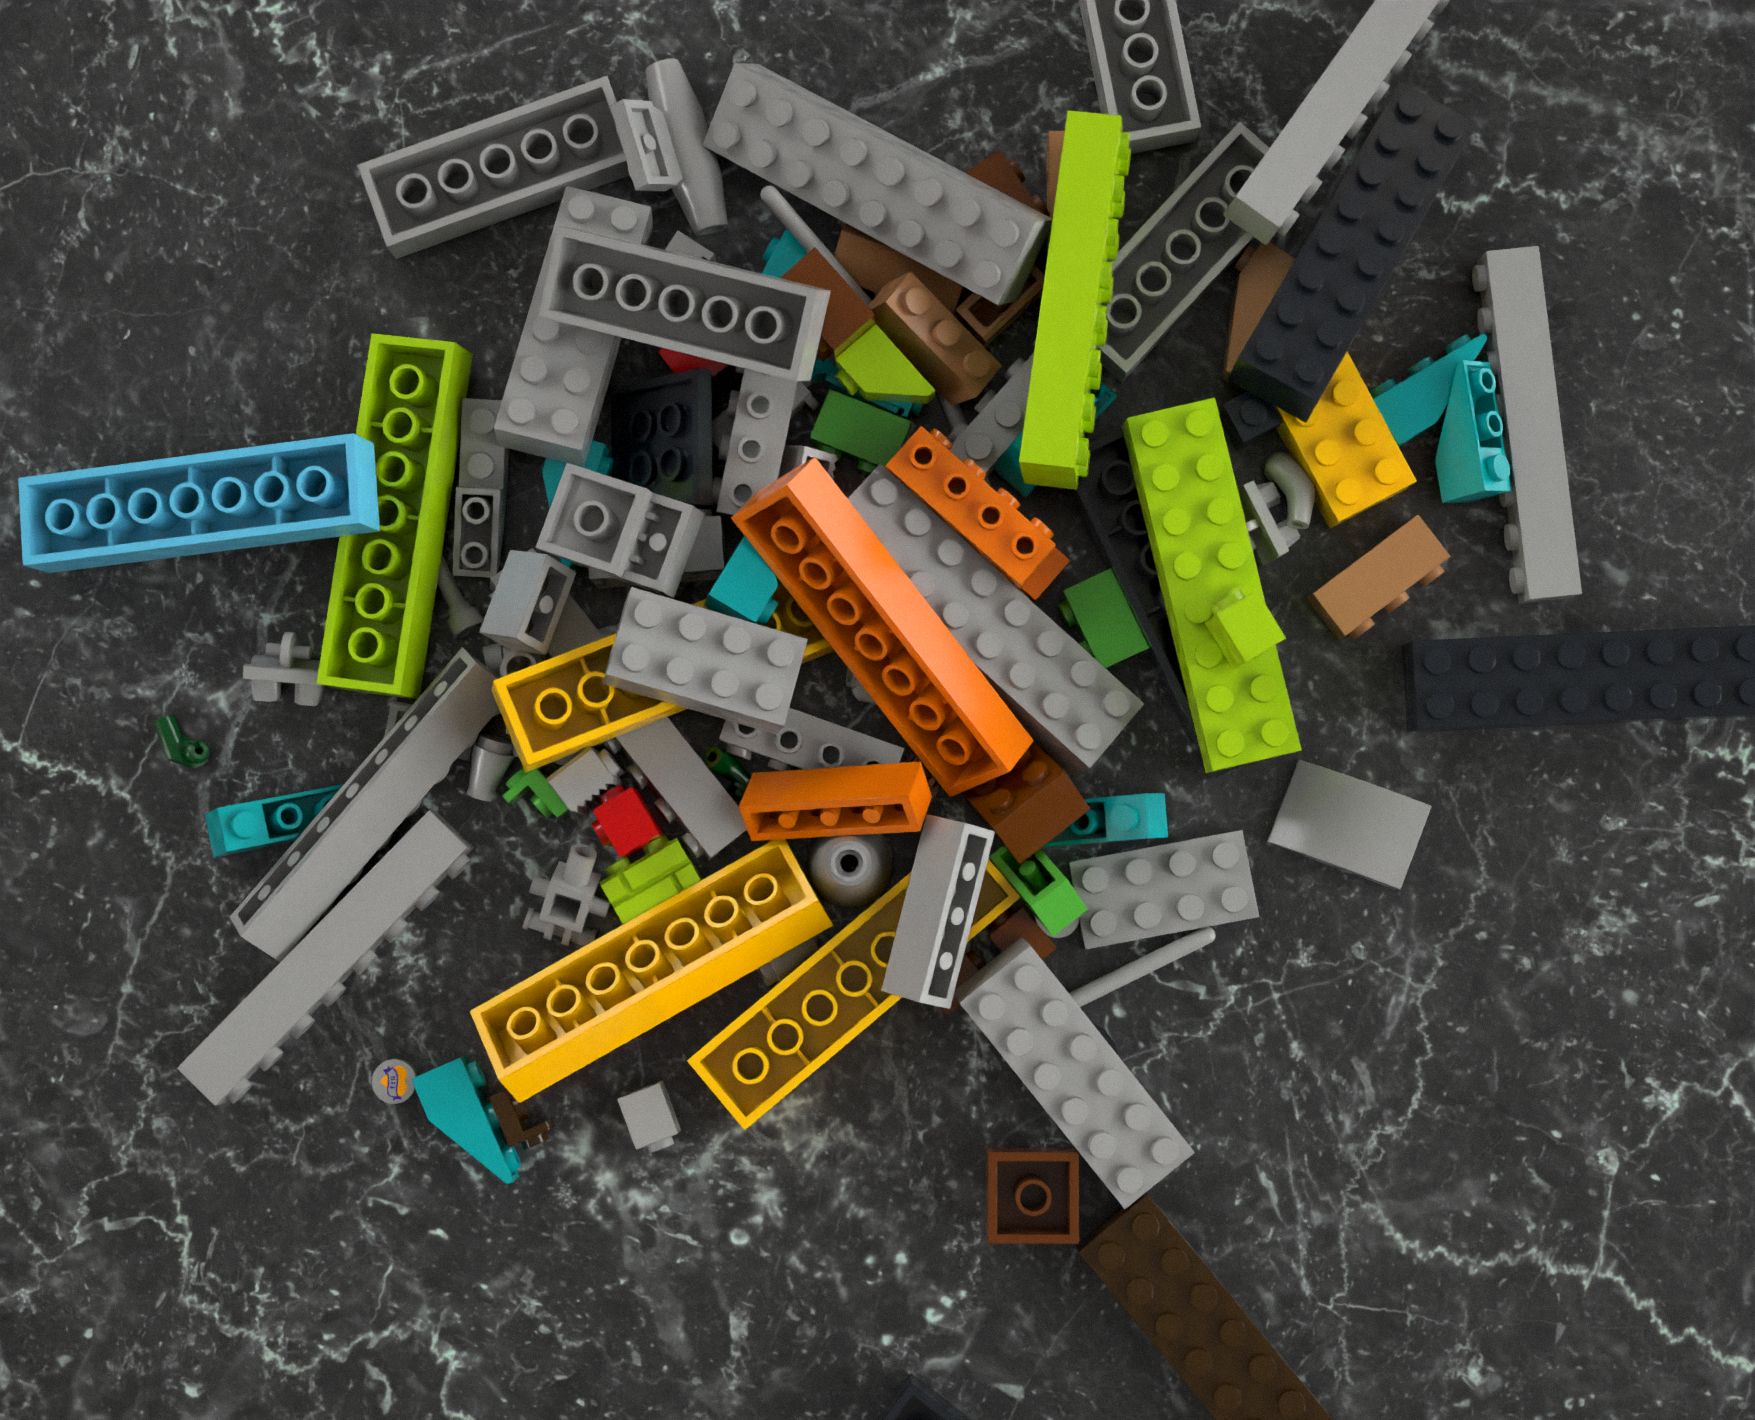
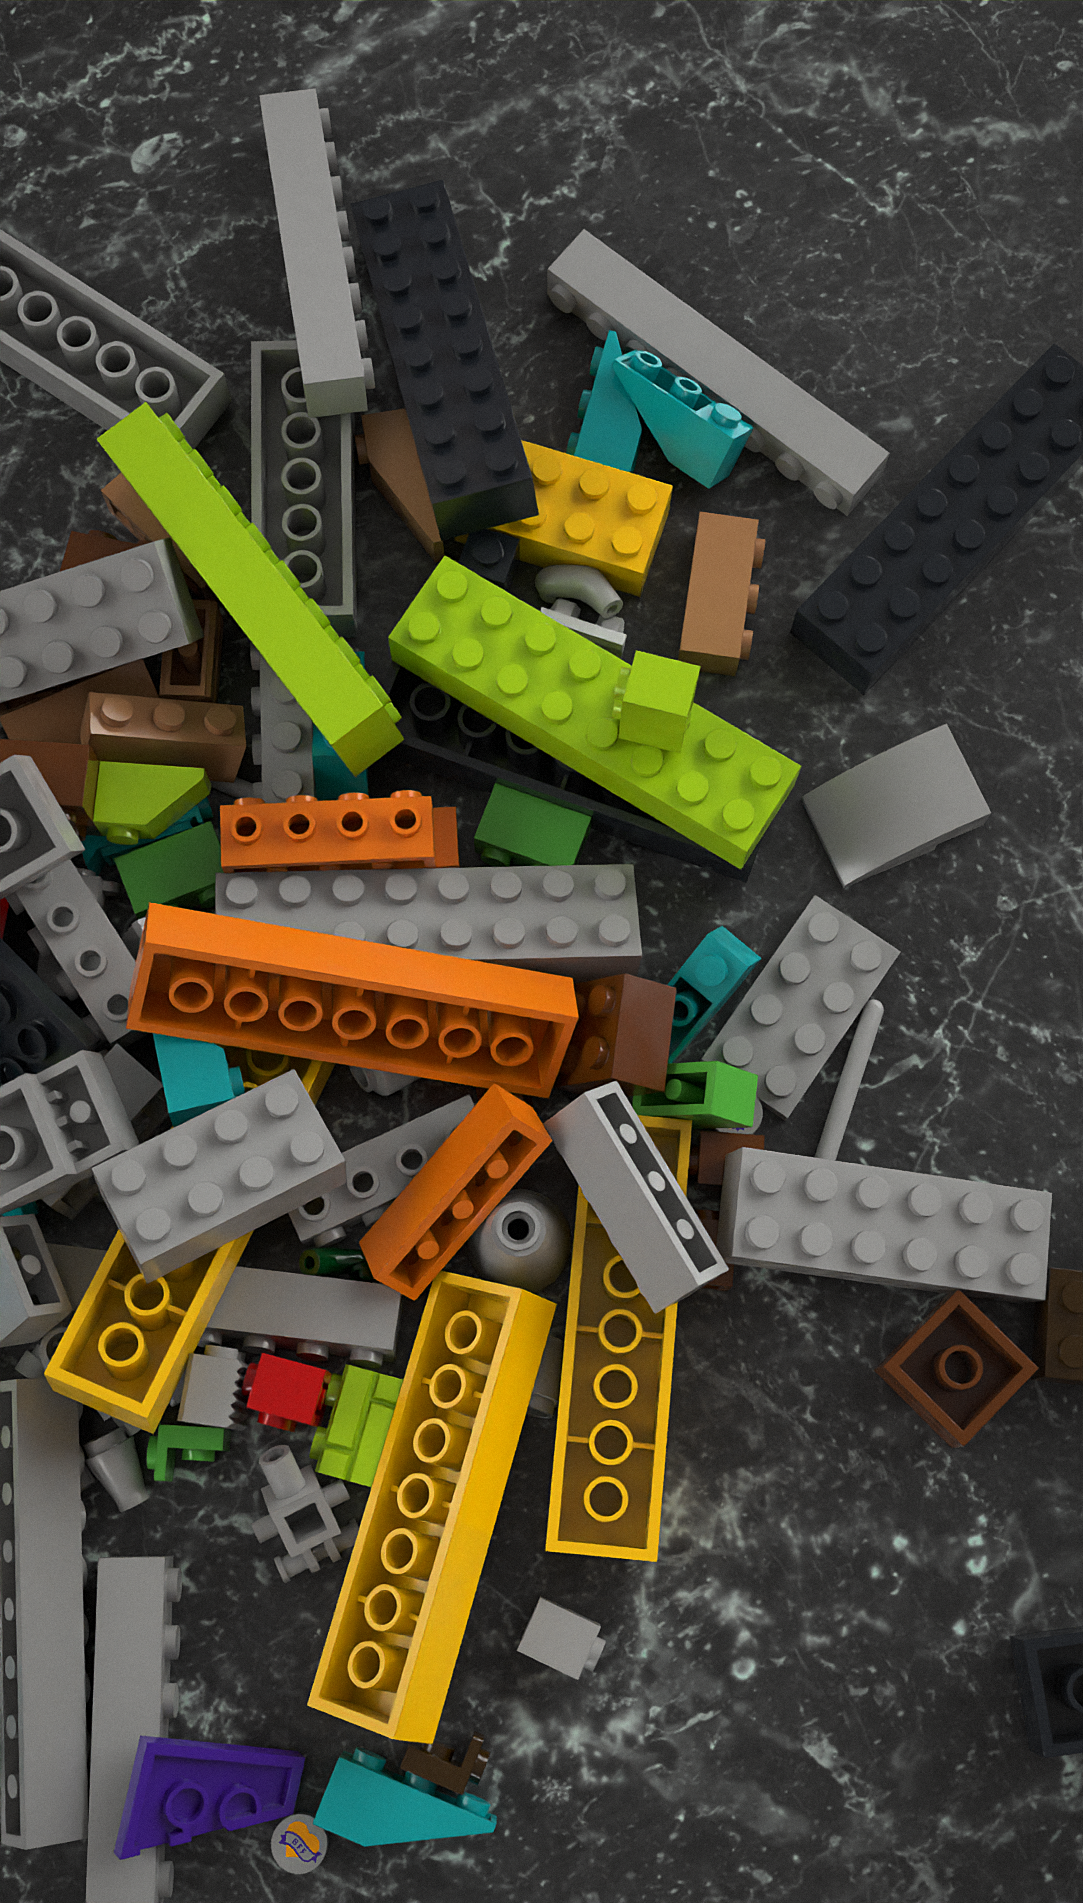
camera: 45 degrees left, 10 degrees down
(370, 998) = (202, 1787): none -> dark purple wing

